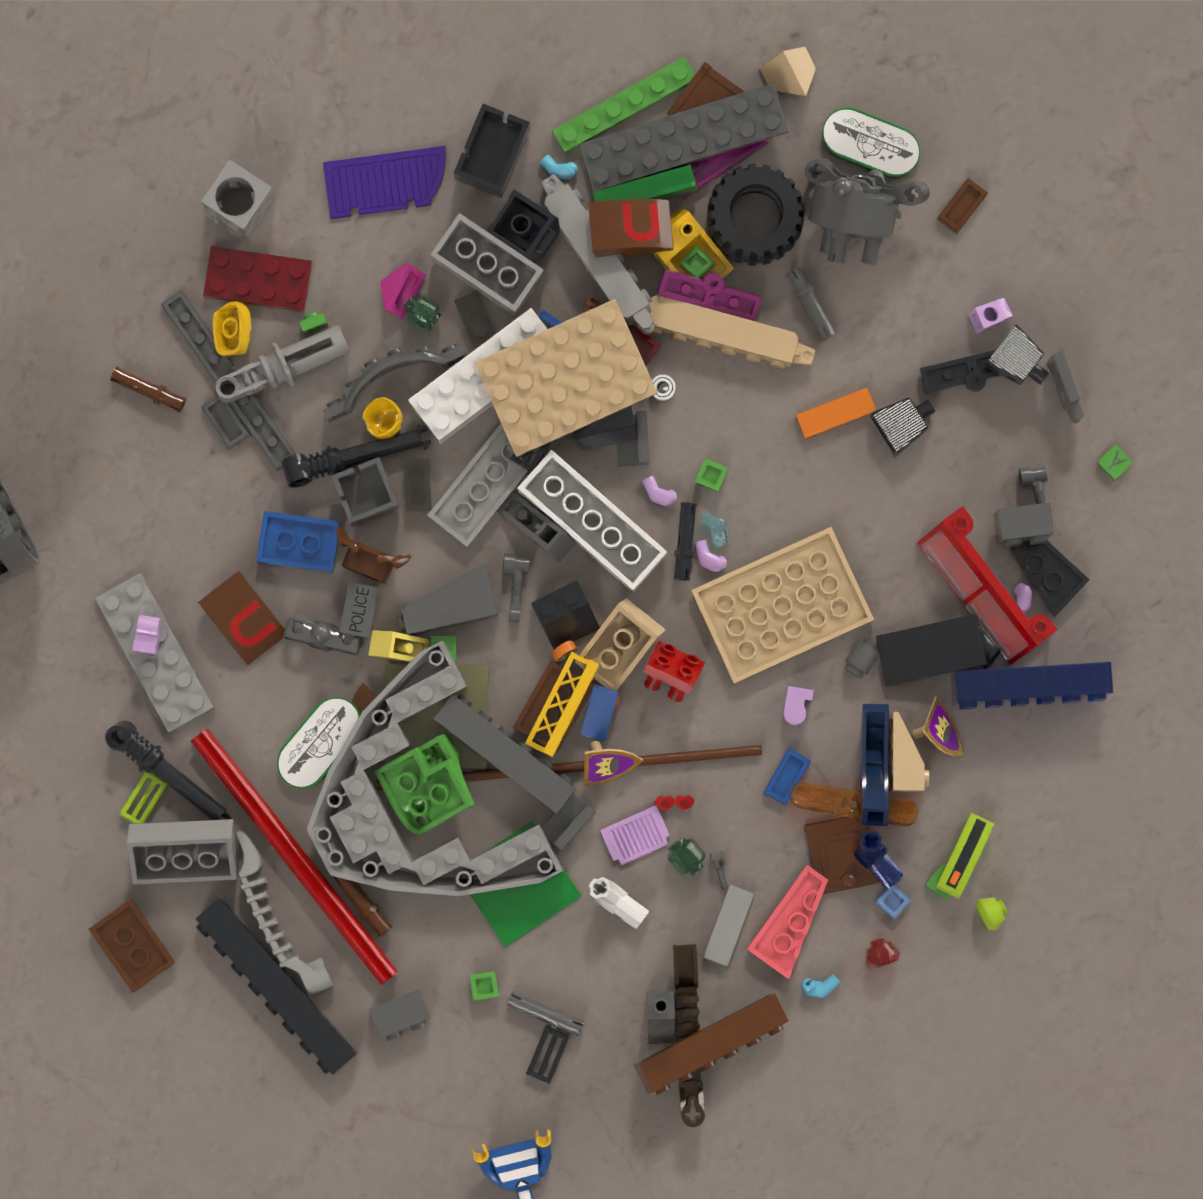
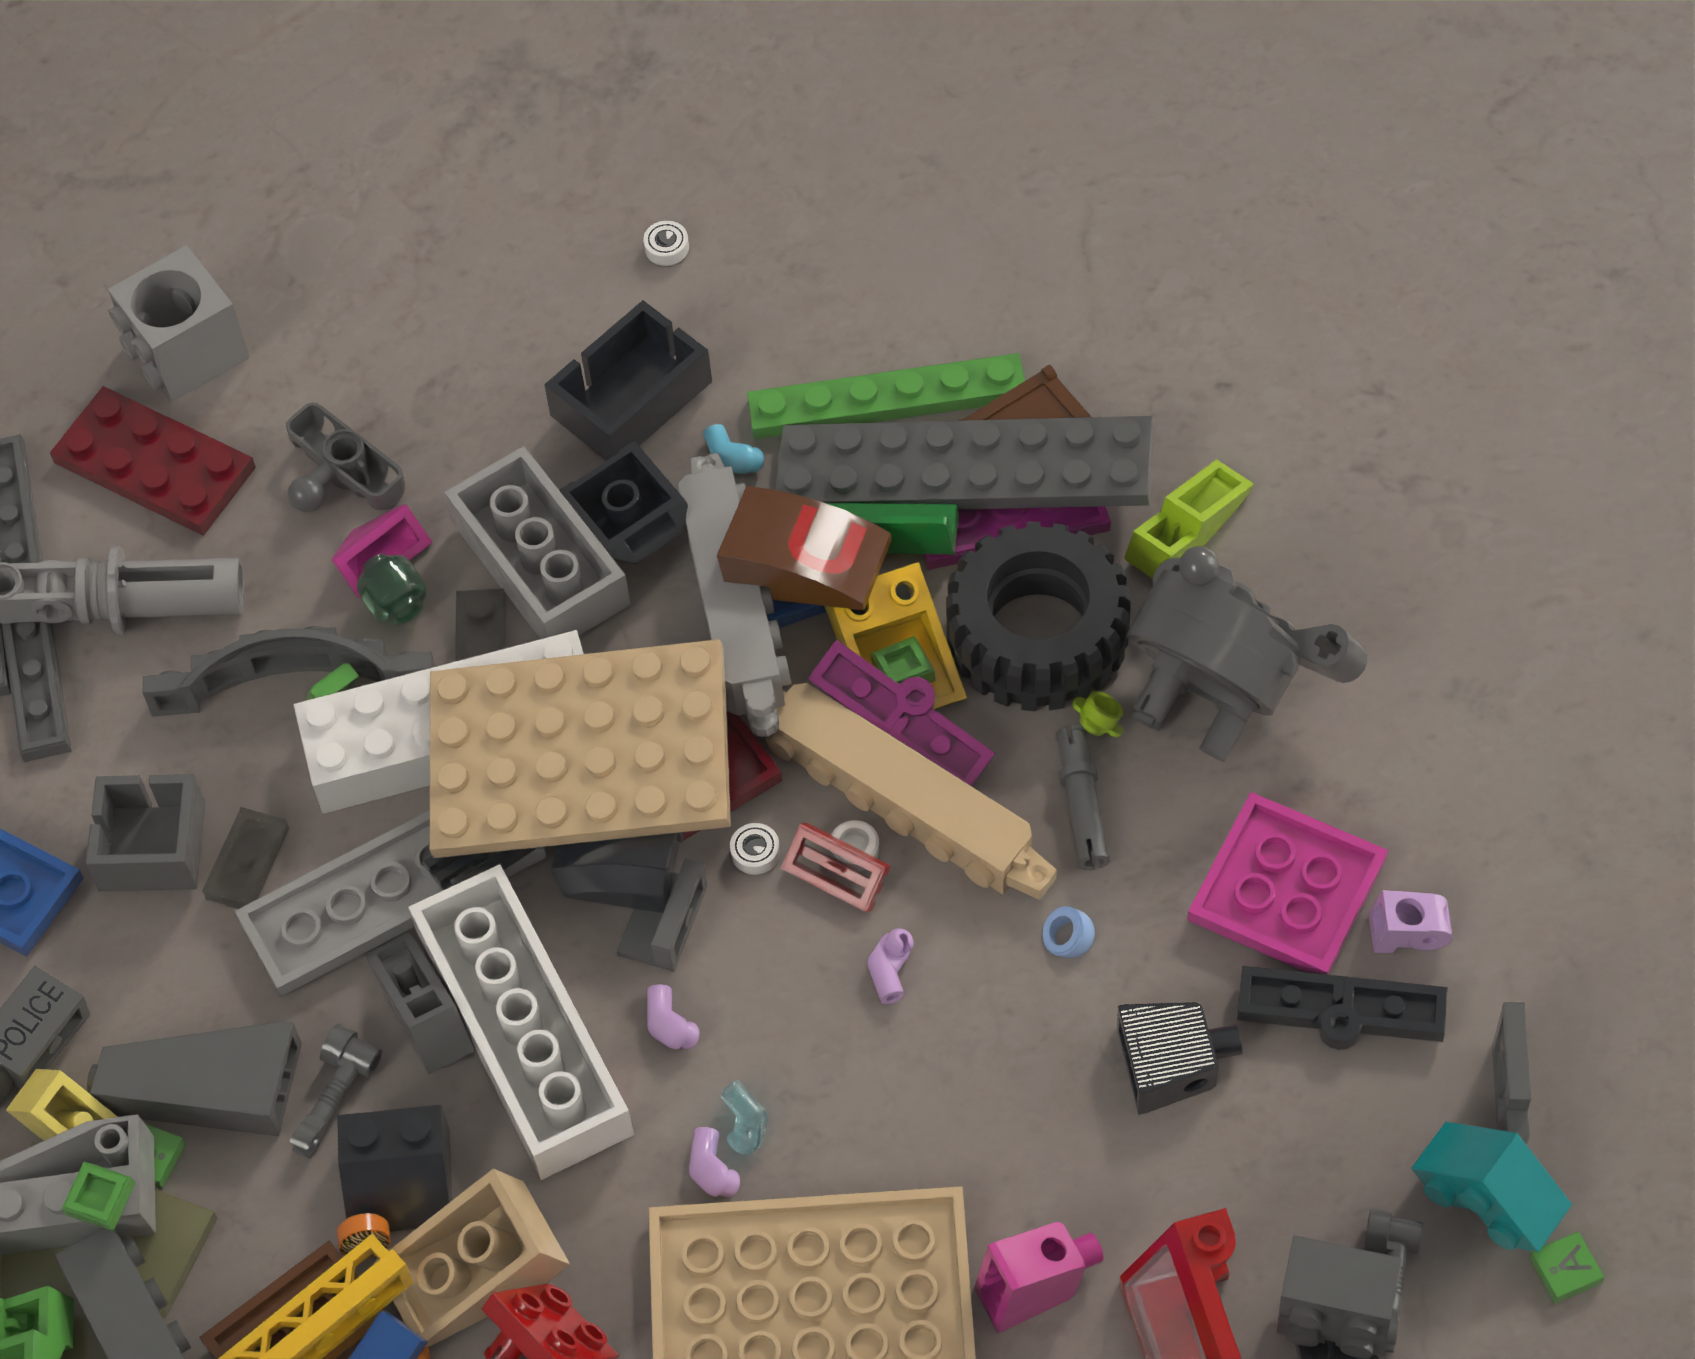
camera: 25 degrees right, 25 degrees down
(232, 329) = (65, 514): yellow piece -> none
(300, 469) = (58, 762): black piece -> none
(313, 322) = (203, 543): bright green plate -> none
(368, 560) = (91, 945): reddish brown piece -> none
(375, 252) = (361, 474): none -> dark grey piece
(383, 418) = (240, 729): yellow hair -> none
(384, 181) = (434, 386): dark purple piece -> none
(417, 378) = (337, 681): none -> bright green tile
(446, 687) = (98, 1196): none -> bright green tile
(469, 50) = (666, 243): none -> white tile
(685, 541) = (668, 1137): black pin -> none
(708, 381) = (871, 884): none -> tile
(710, 368) = (859, 835): none -> white tile
(711, 475) = (777, 1021): bright green plate -> none
(749, 425) = (886, 962): none -> lavender arm
(790, 71) = (1193, 422): tan slope -> none
(803, 255) = (1100, 714): none -> lime plate
(807, 127) = (1188, 517): none -> lime slope
(835, 371) = (1081, 938): none -> light blue piece
(835, 413) = (1052, 996): orange tile -> none
(871, 142) = (1295, 573): white tile -> none
(876, 561) = (1033, 1273): none -> dark pink torso
(926, 316) = (1287, 885): none -> dark pink plate
(962, 206) = (1423, 731): reddish brown tile -> none
(1017, 358) = (1433, 1001): torso -> none
(1071, 439) = (1497, 1180): none -> teal brick

